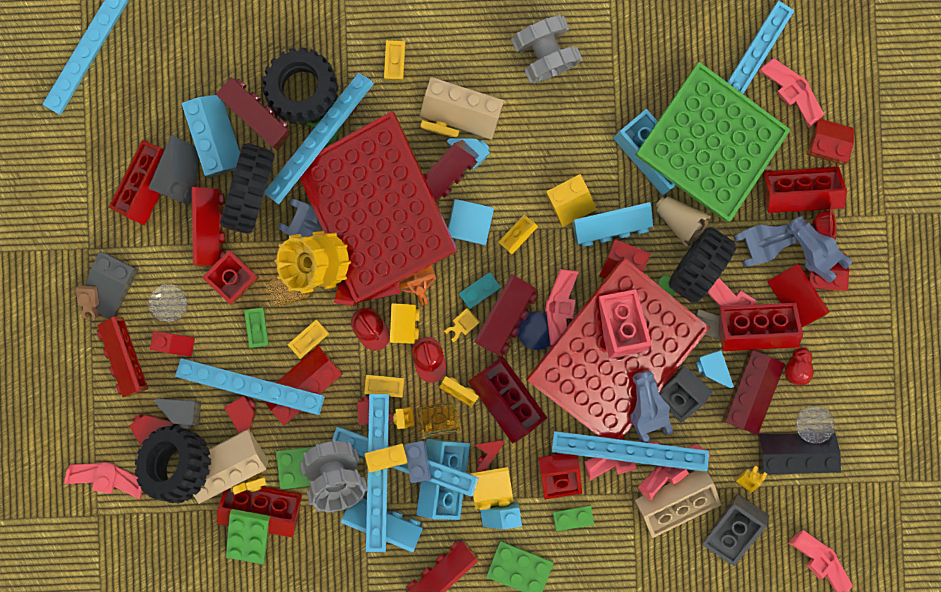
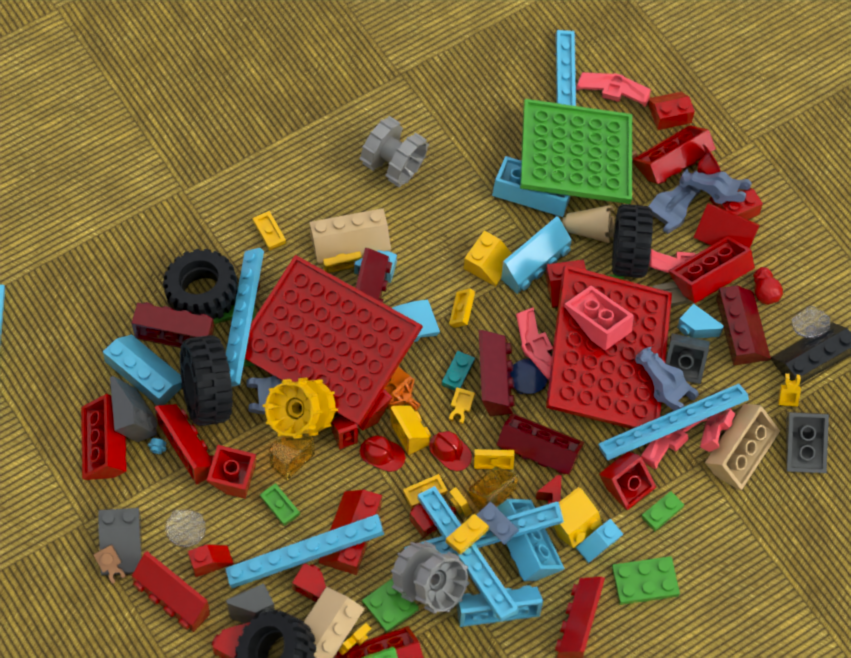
camera: 35 degrees left, 25 degrees down
(184, 214) = (157, 446): none -> medium azure plate
(308, 339) = (332, 489): yellow plate -> none

